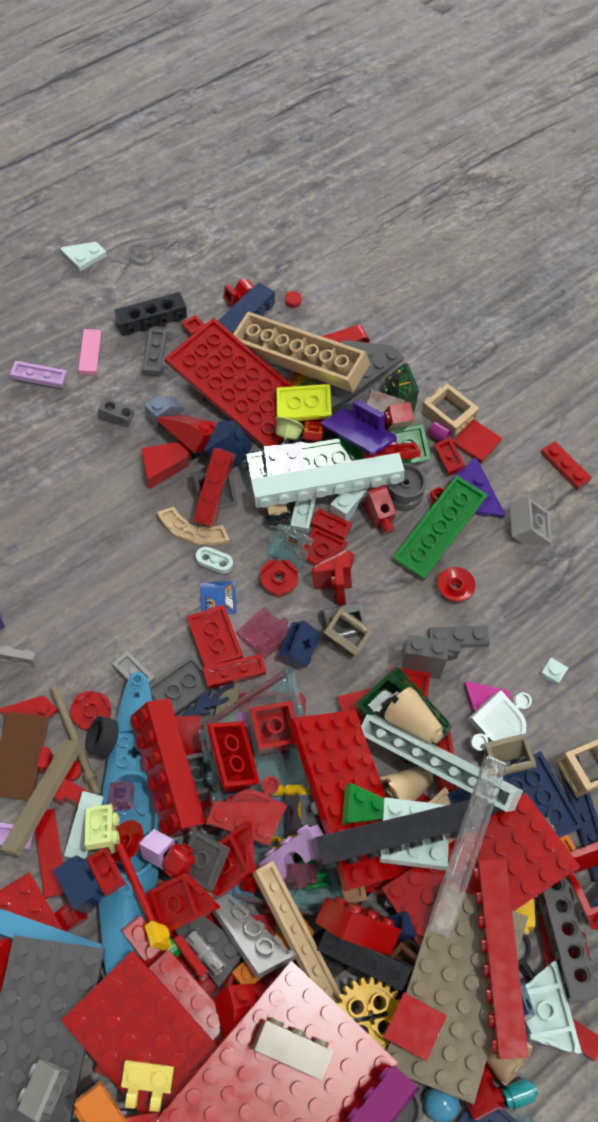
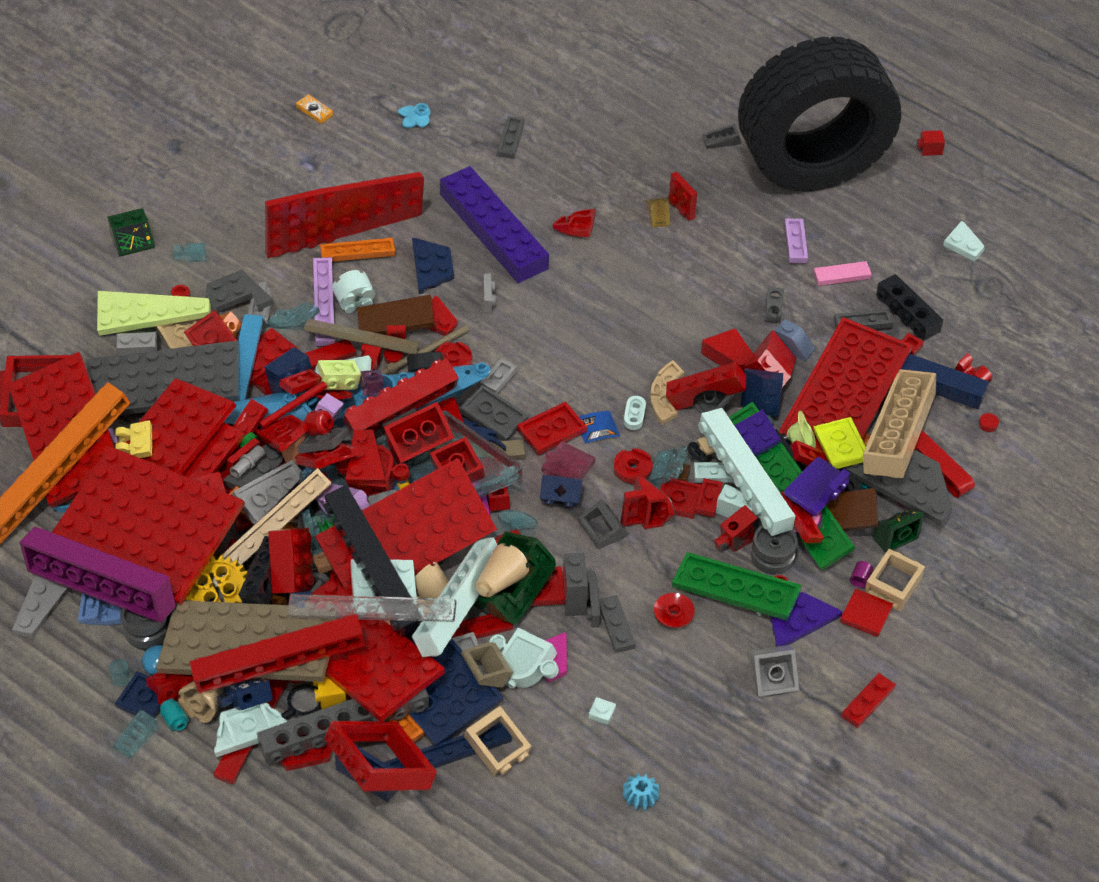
camera: 80 degrees right, 10 degrees down
(43, 1090) = (129, 381): light grey slope -> none
(158, 935) = (252, 422): yellow plate -> none
(234, 671) = (518, 444): red plate -> none
(293, 1048) = (172, 512): brick -> none
(302, 874) = (320, 511): clear pink plate -> none
(326, 693) = (517, 520): none -> clear light blue dish
(339, 639) = (576, 518): dark tan tile -> none
(361, 805) = (396, 536): green wing -> none
(398, 416) = (845, 512): brick -> none
(415, 1026) = (210, 609): red tile -> none
(449, 456) = (833, 586): red plate -> none

